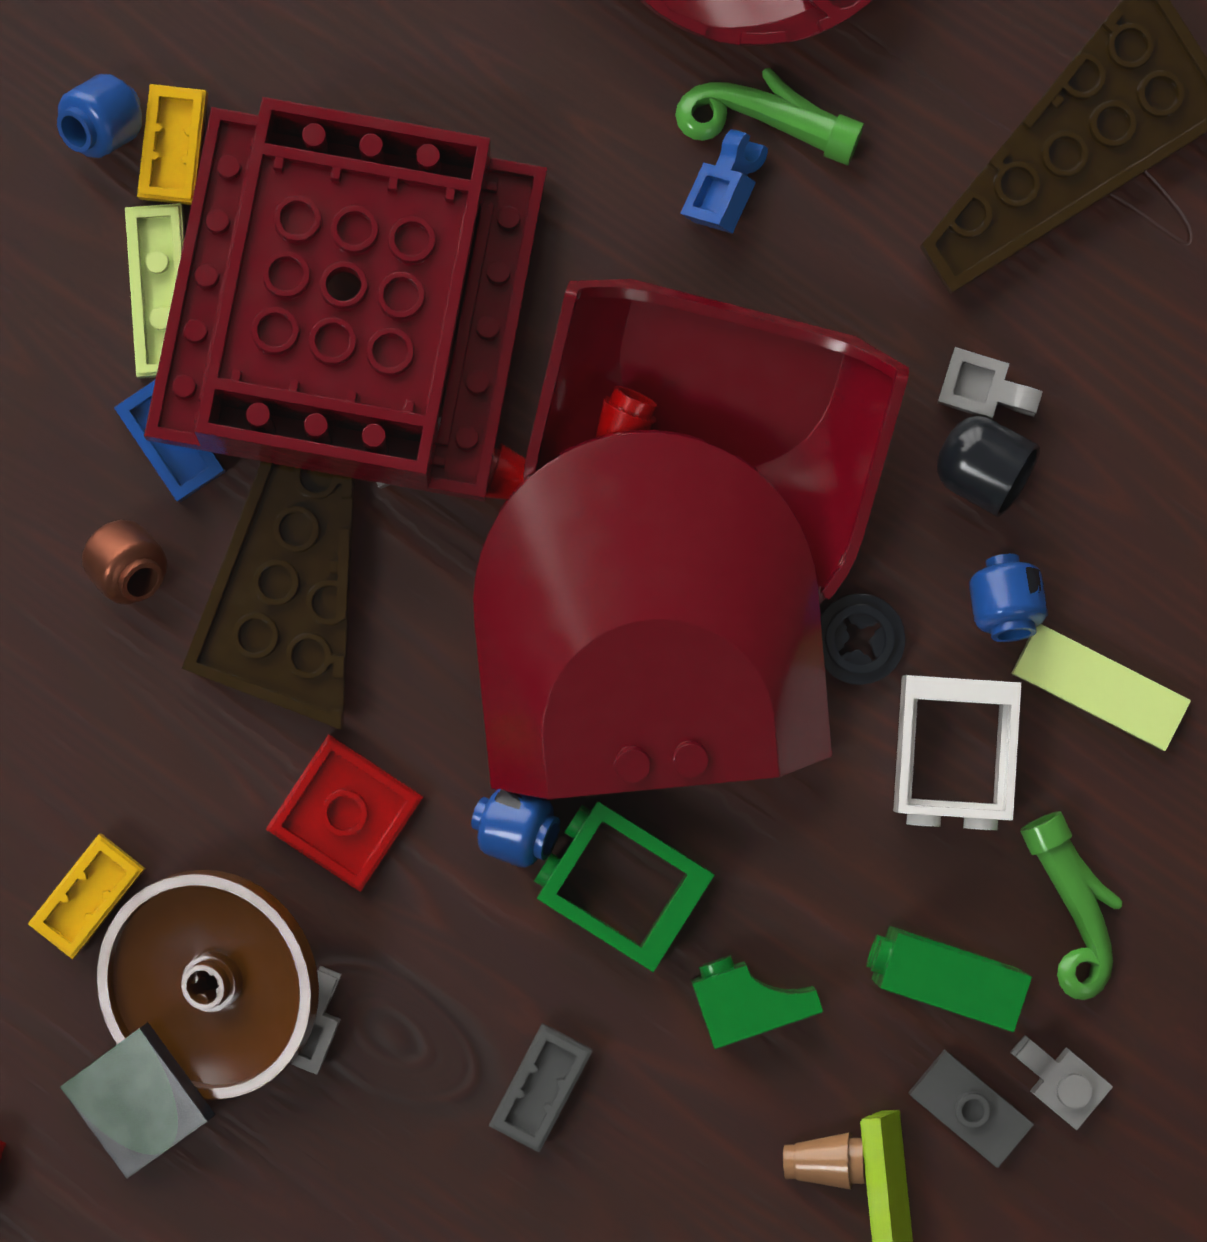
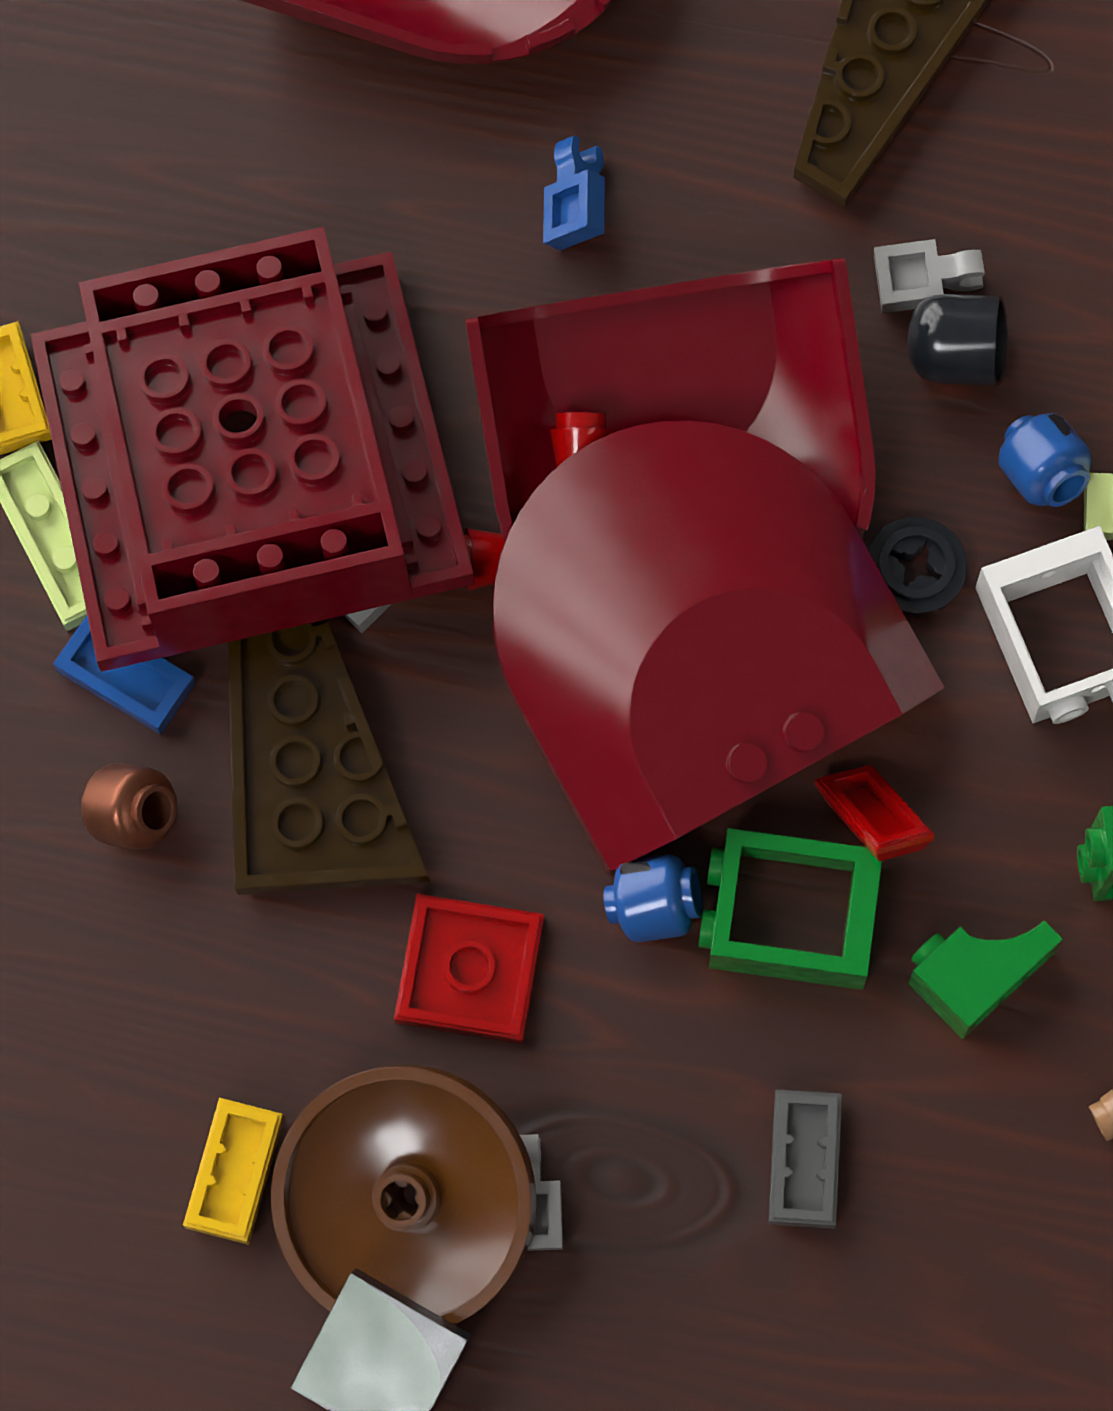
camera: 20 degrees left, 15 degrees down
(724, 837) = (874, 812): none -> red tile
(781, 110) = (595, 110): bright green plant -> none

